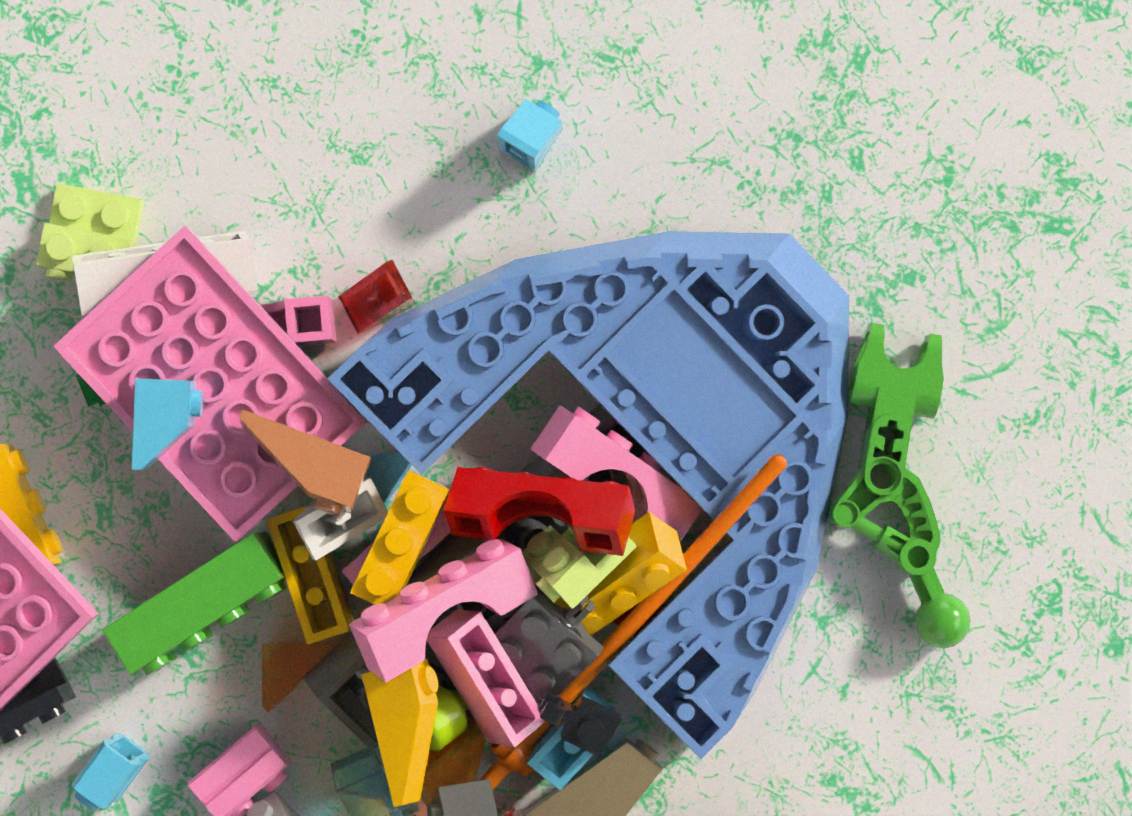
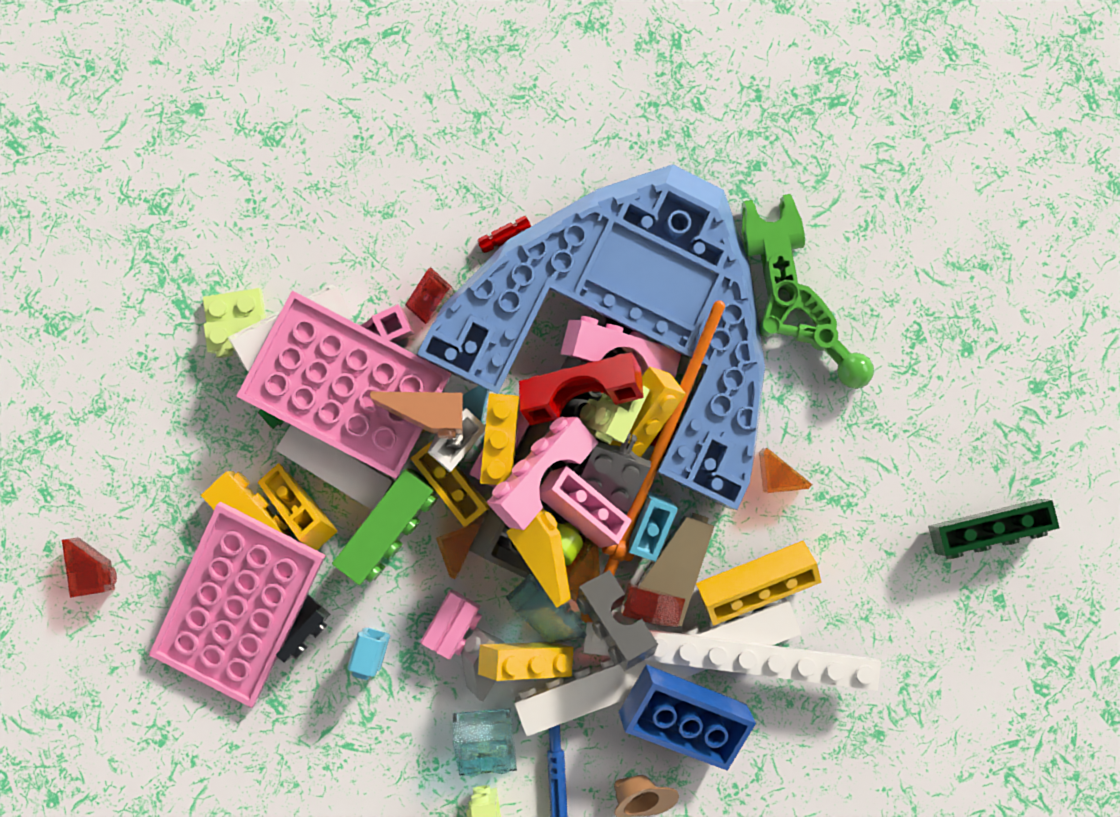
camera: 20 degrees left, 0 degrees up
(83, 530) = (297, 508): none -> yellow slope
(159, 498) = (336, 467): none -> white brick
(162, 416) = (321, 415): medium azure slope -> none
(514, 247) = (503, 234): none -> red axle
(530, 133) = (488, 159): medium azure slope -> none
(584, 724) = (657, 513): black plate -> none
(779, 731) = (778, 475): none -> clear orange slope

